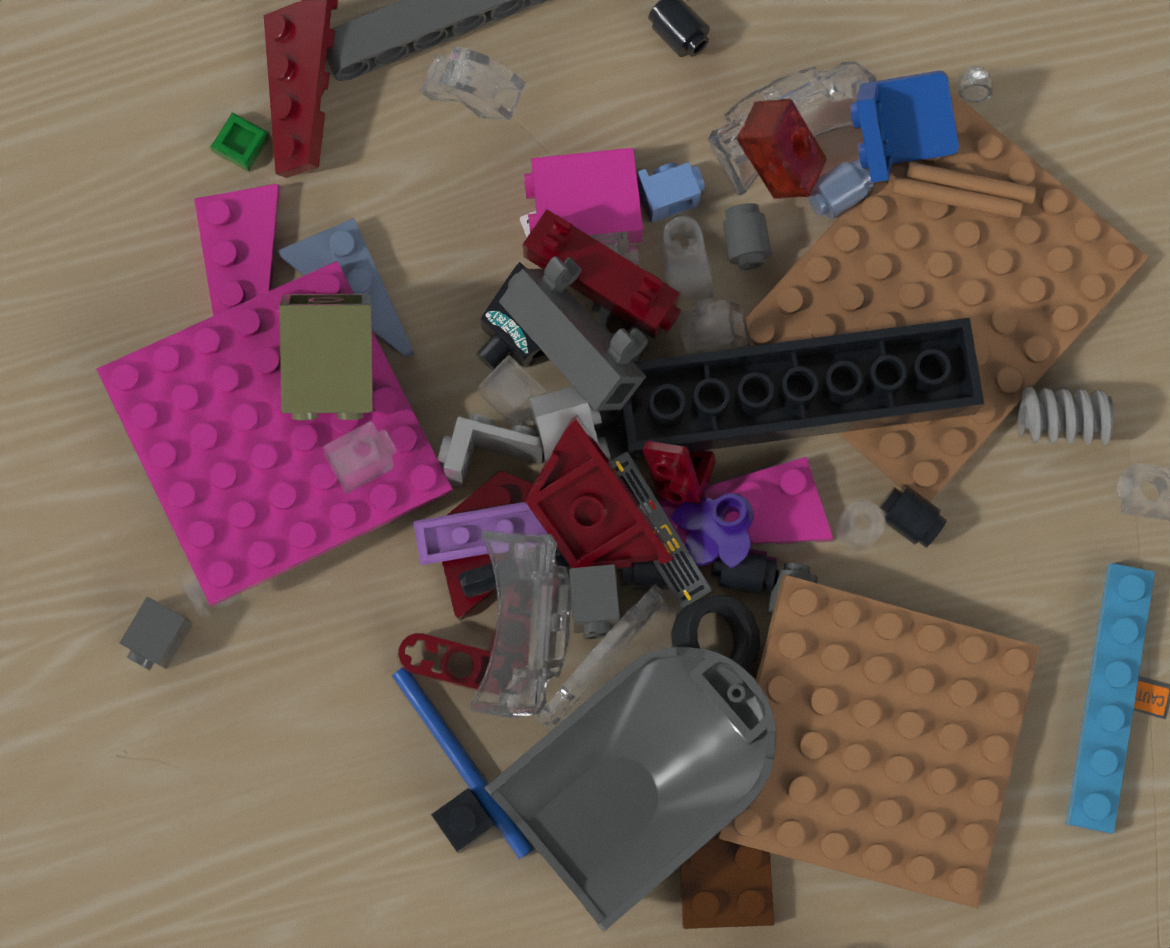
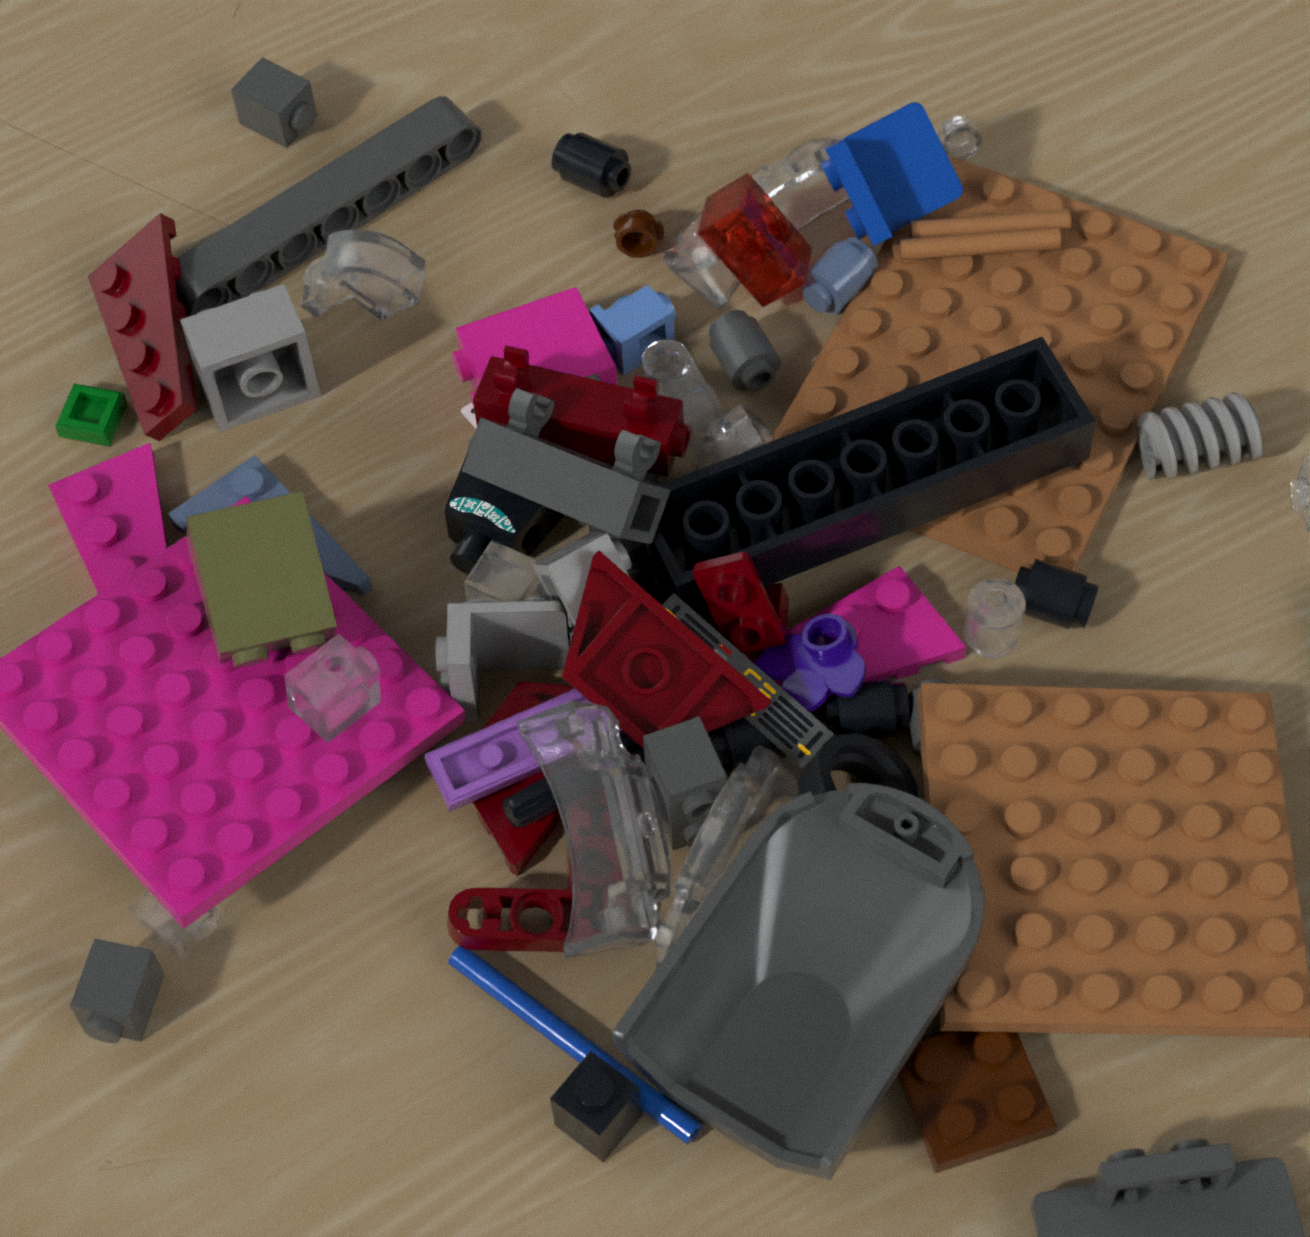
camera: 10 degrees left, 20 degrees down
(368, 138) = (251, 357): none -> light grey brick
(697, 101) = (637, 233): none -> reddish brown plate

